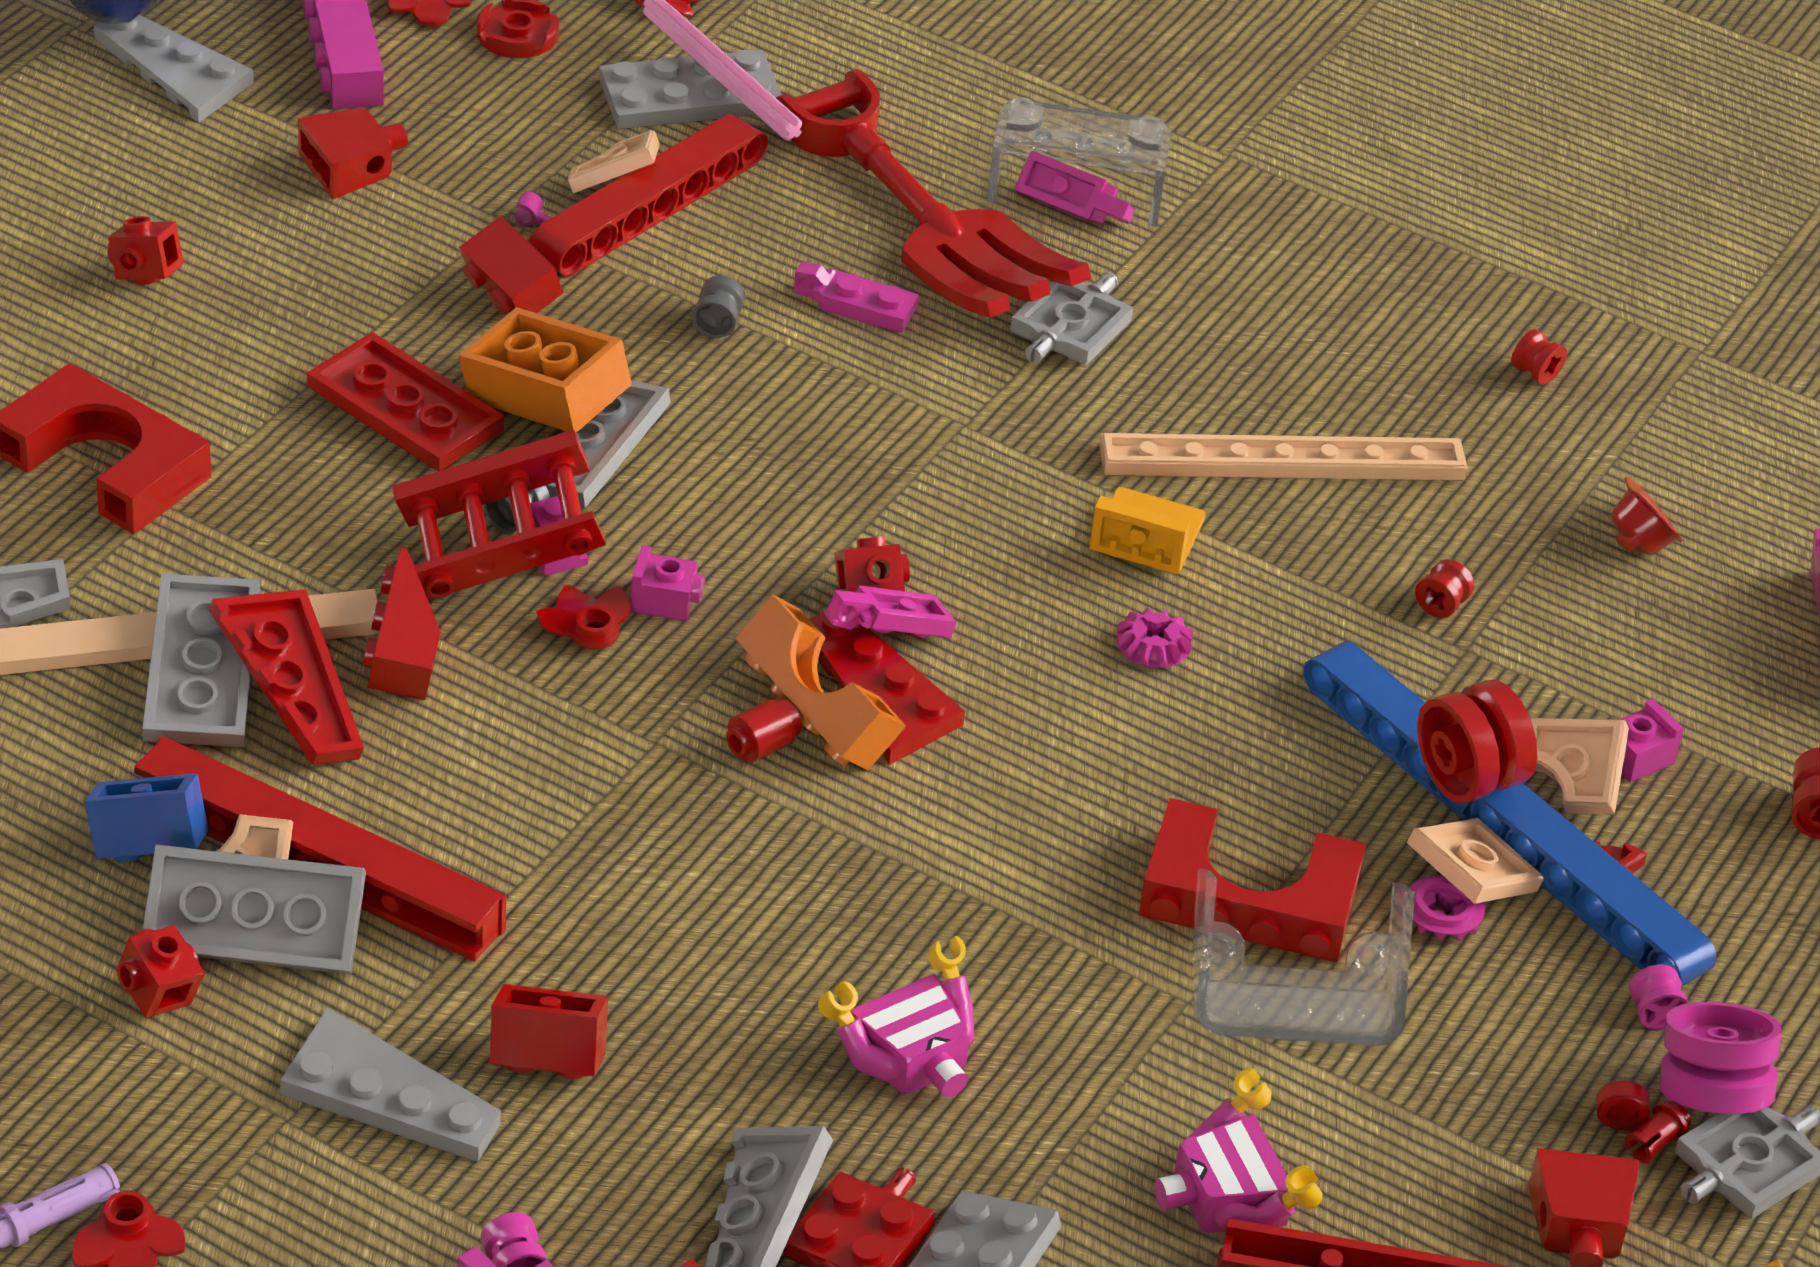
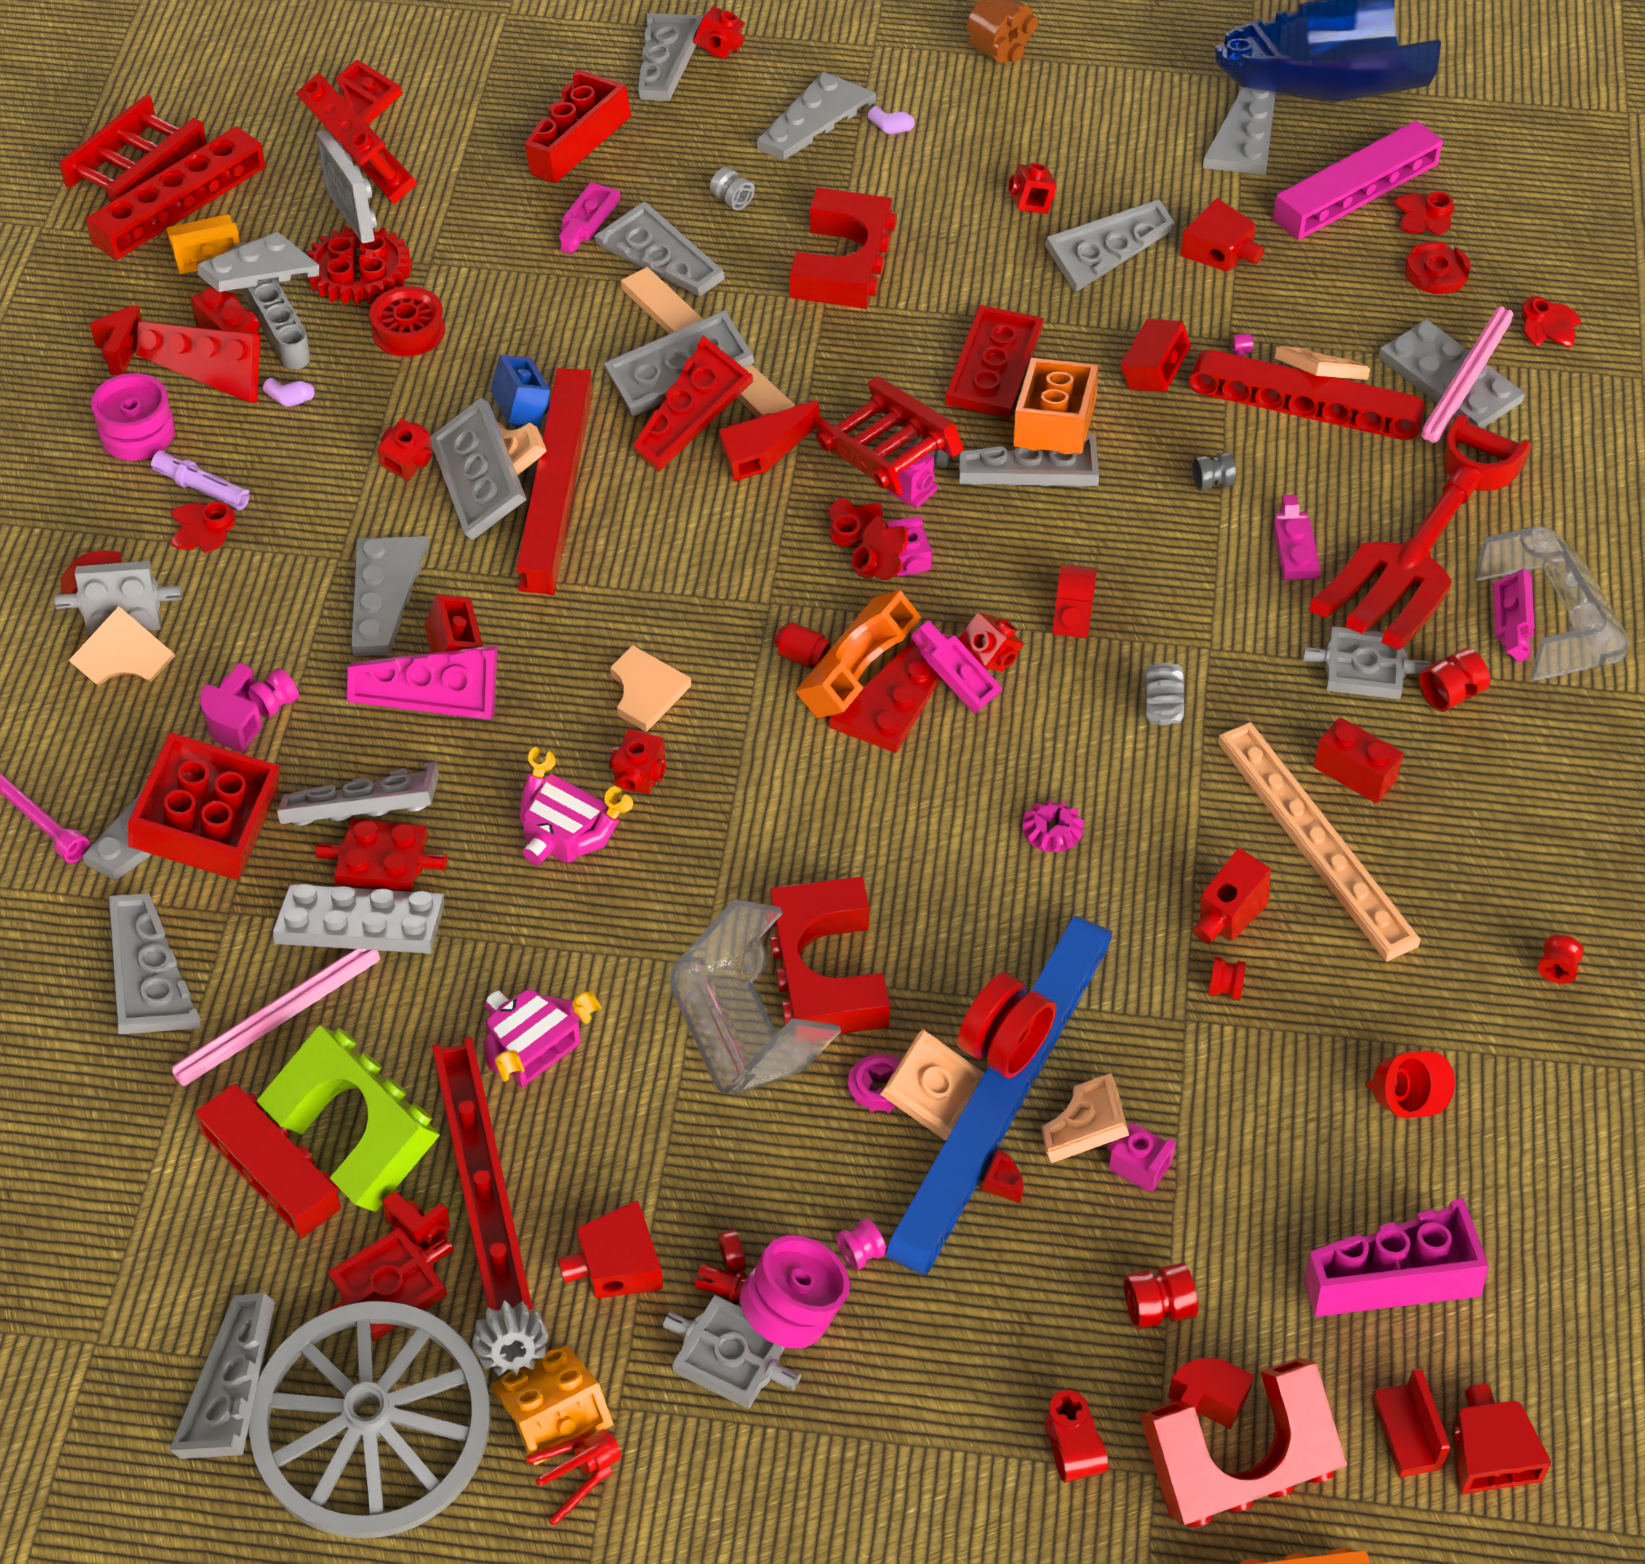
camera: 70 degrees right, 10 degrees up
(277, 240) = (1104, 244): none -> light grey wing
(614, 1078) = (436, 682): none -> dark pink wing
(666, 595) = (880, 551): none -> red plate
(730, 891) = (648, 687): none -> light nougat tile
(844, 471) = (1074, 601): none -> red brick
(868, 931) = (638, 762): none -> red brick
(1037, 470) = (1164, 693): none -> light grey gear
(1143, 266) = (1454, 679): none -> red wheel
(1145, 529) = (1163, 781): light orange bracket -> none
(1209, 376) = (1358, 760): none -> red brick
(1352, 532) = (1233, 898): none -> red torso

